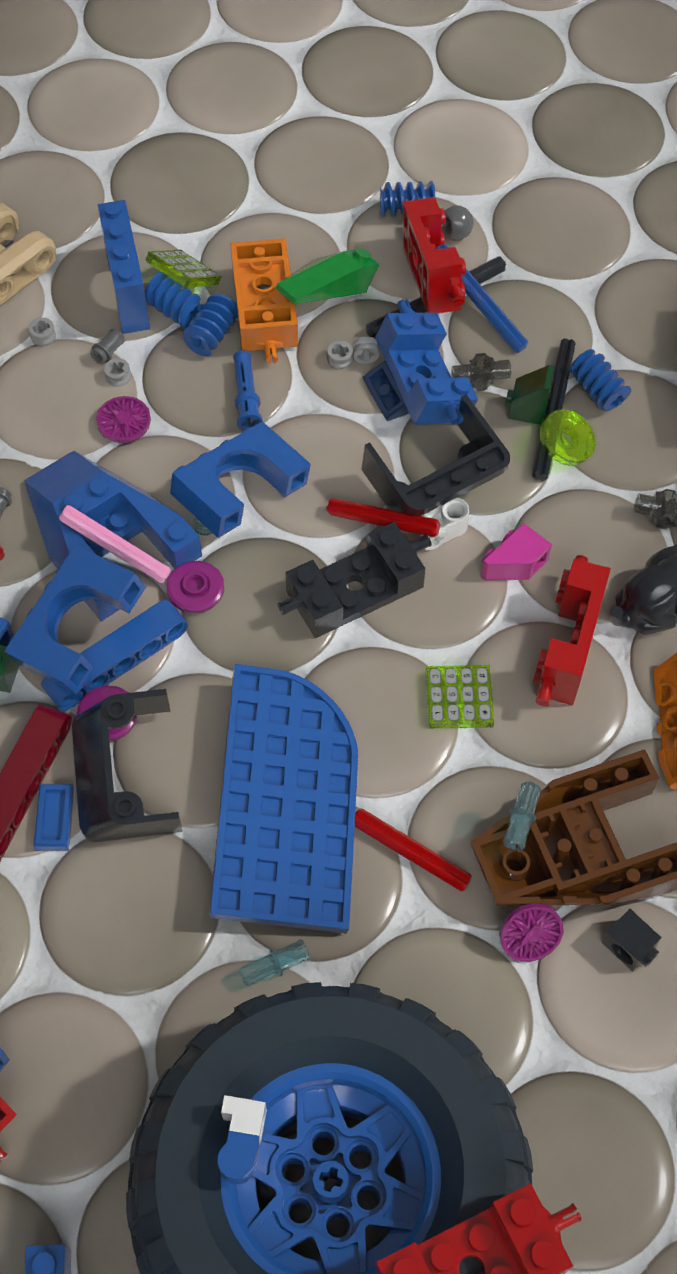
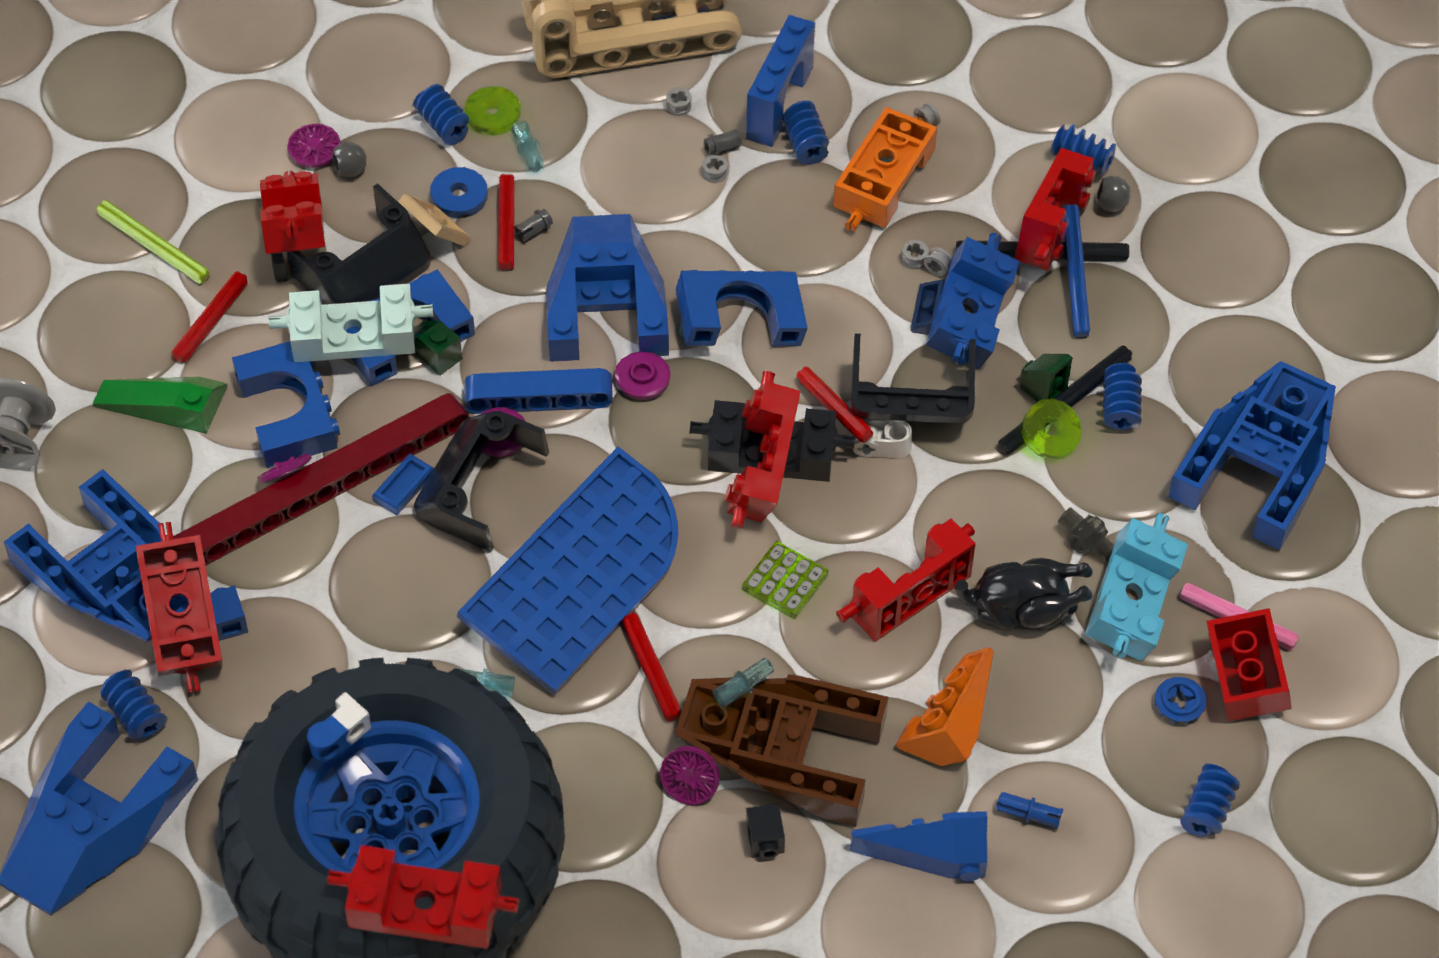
camera: 35 degrees right, 5 degrees down
(78, 579) = (542, 312): blue arch -> none
(114, 544) = (599, 304): bright pink axle -> none
(123, 419) = (689, 210): magenta wheel -> none
(183, 268) = (835, 108): clear neon green tile -> none
(210, 324) = (818, 168): blue piece -> none
(247, 400) = (803, 249): blue pin -> none
(260, 232) = (928, 114): none -> light grey bush
(330, 277) = (949, 181): green wedge -> none
(359, 555) = (758, 489): none -> red brick
(482, 371) = (1024, 333): clear smoke axle -> none
(517, 557) = (922, 499): dark pink slope -> none

